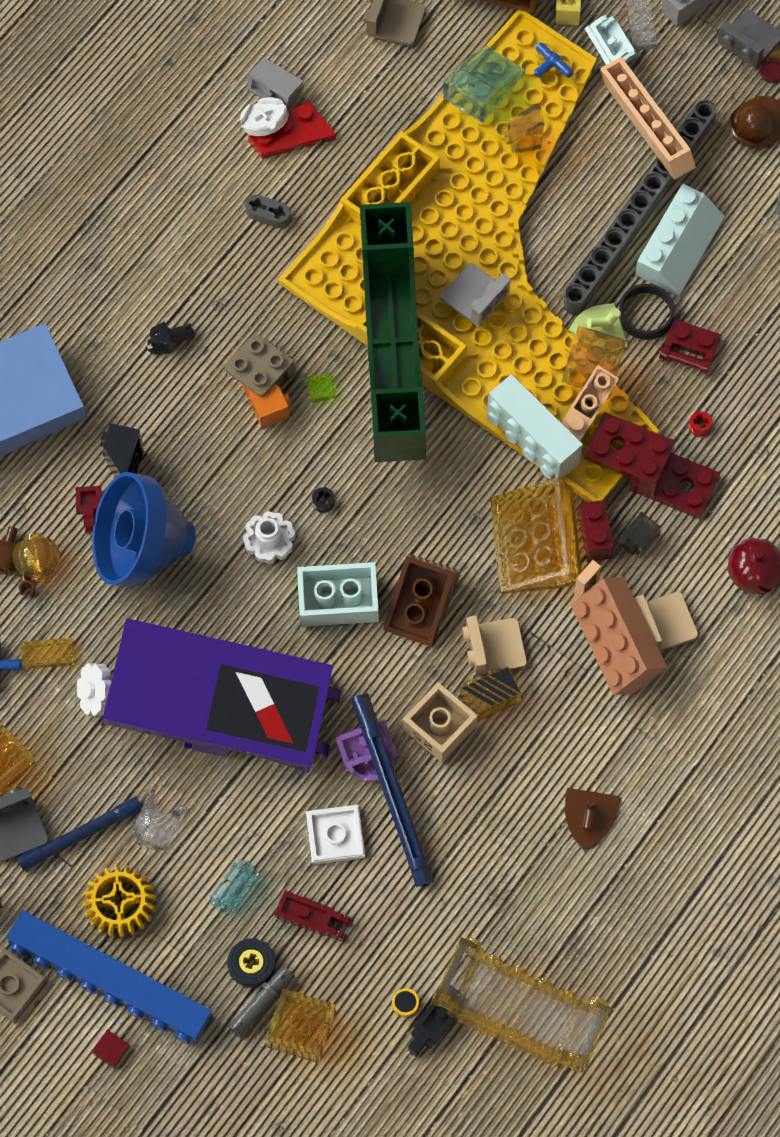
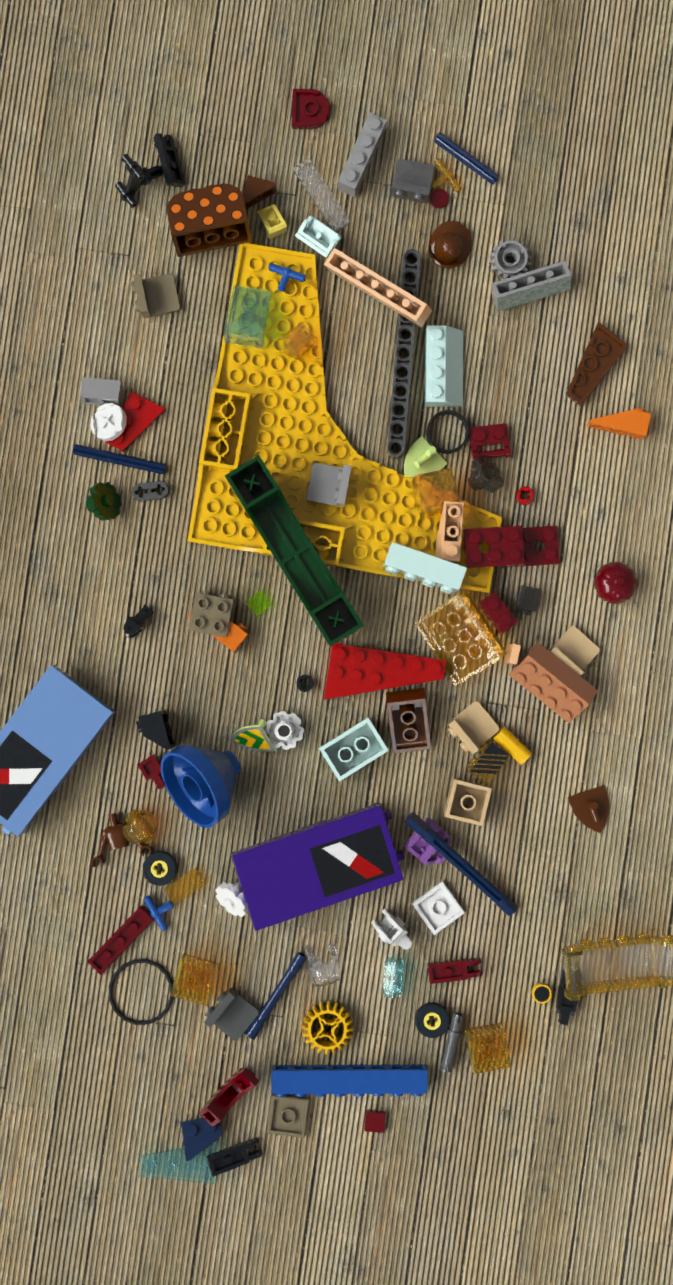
camera: 30 degrees left, 20 degrees up
(30, 630) = (167, 861): none -> black bush
(209, 191) = (104, 501): none -> dark green plant
(227, 524) = (253, 738): none -> shield
(253, 162) = (119, 459): none -> dark blue axle
(265, 826) = (392, 930): none -> white hinge
(412, 524) = (366, 670): none -> red wing
(531, 690) = (512, 745): none -> yellow axle
(663, 373) = (485, 475): none -> clear smoke plant

